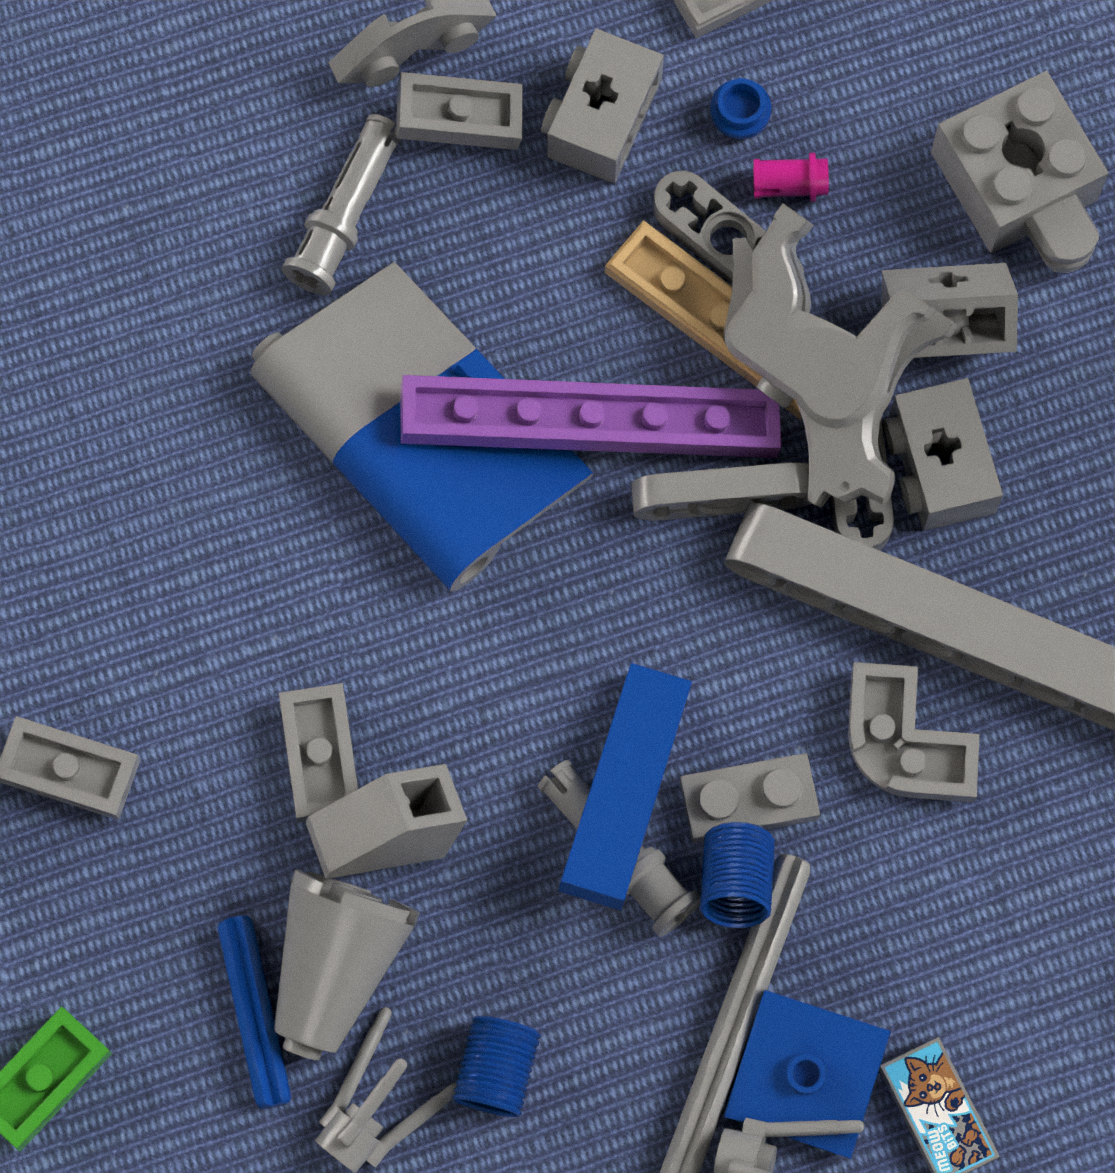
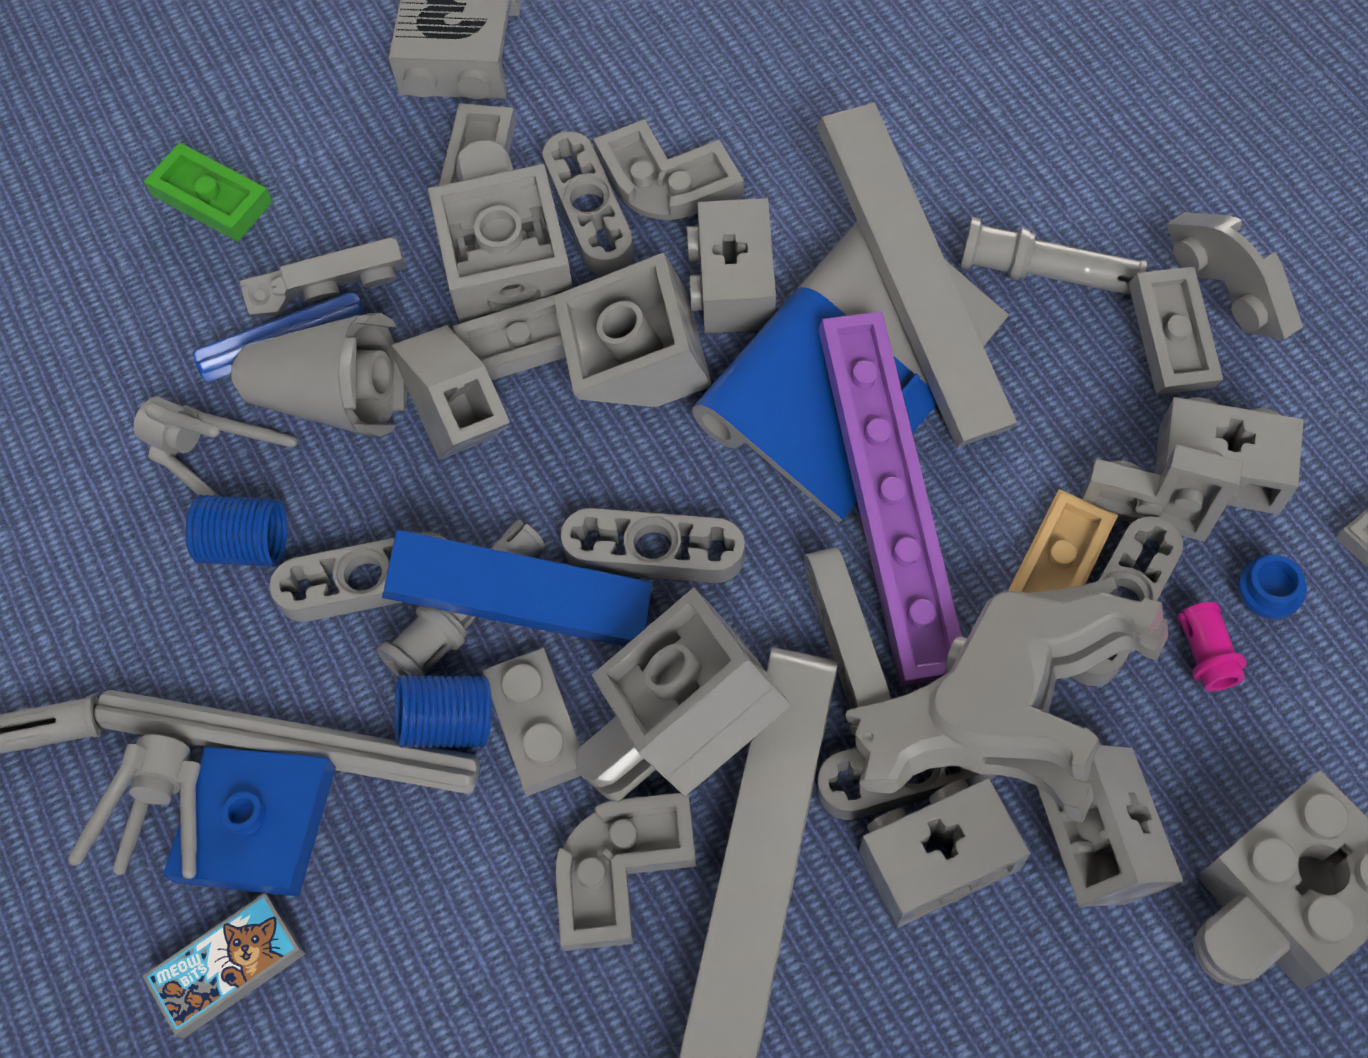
camera: 85 degrees right, 10 degrees down
(109, 680) = (585, 224): none -> light grey beam
(154, 578) = (665, 186): none -> light grey plate
(193, 952) = (322, 275): none -> light grey hinge
(201, 750) = (498, 233): none -> light grey brick
(255, 497) = (736, 265): none -> light grey brick
(346, 336) = (916, 275): none -> light grey tile
(358, 633) = (632, 337): none -> light grey slope
(550, 995) = (315, 567): none -> light grey beam
(615, 618) = (670, 566): none -> light grey beam
(651, 149) = (1187, 493): none -> light grey plate
(765, 665) = (681, 702): none -> light grey brick

